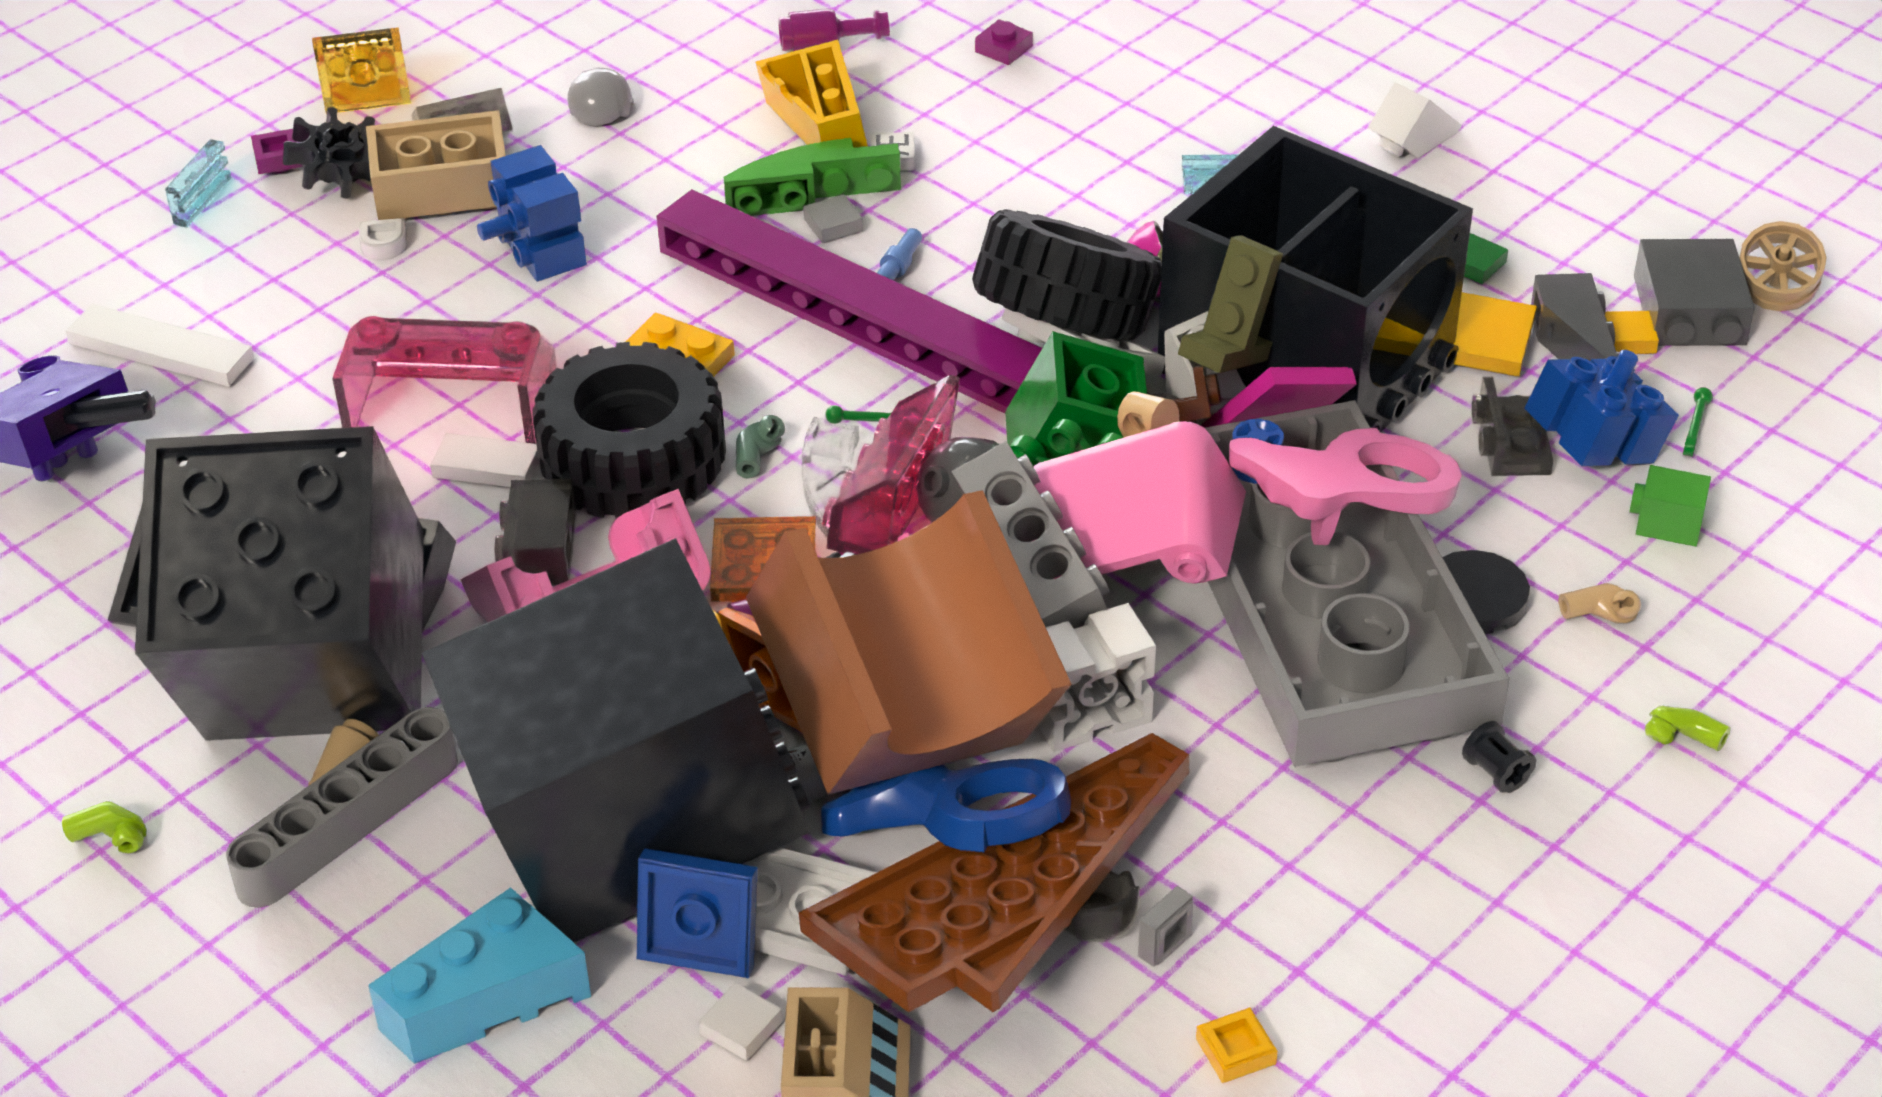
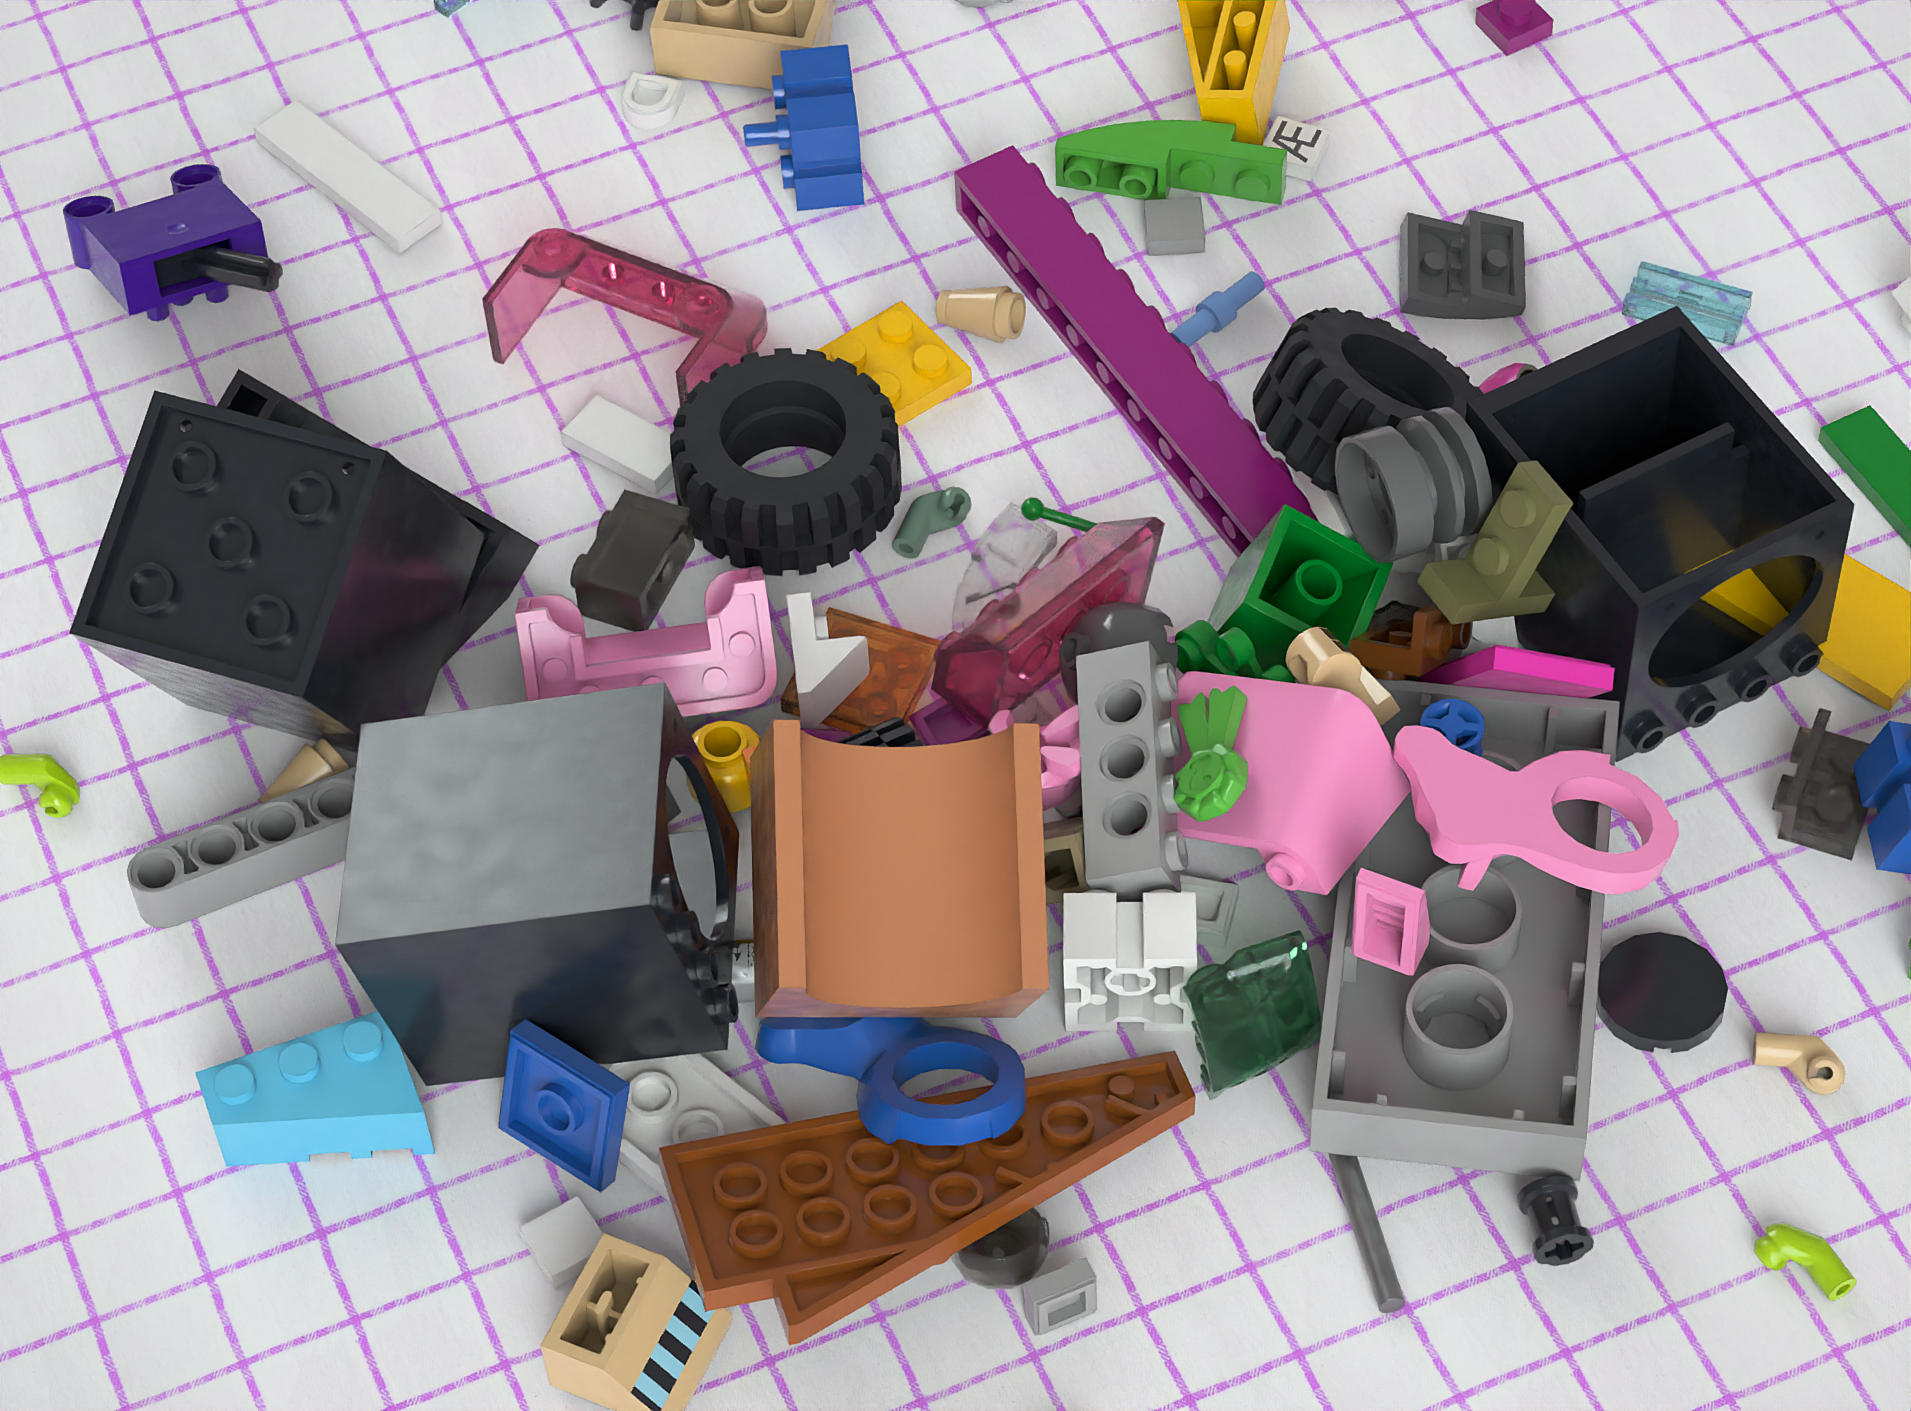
camera: 25 degrees right, 10 degrees up
(721, 303) = (985, 311): none -> tan cone
(732, 551) = (823, 666): none -> white slope
(1061, 188) = (1462, 267): none -> dark grey slope
(1103, 515) = (1215, 772): none -> bright green piece
(1145, 288) = (1413, 484): none -> dark grey wheel
(1202, 681) = (1253, 1011): none -> clear green slope
(1294, 577) = (1389, 922): none -> bright pink slope
(1363, 810) = (1368, 1232): none -> flat silver bar

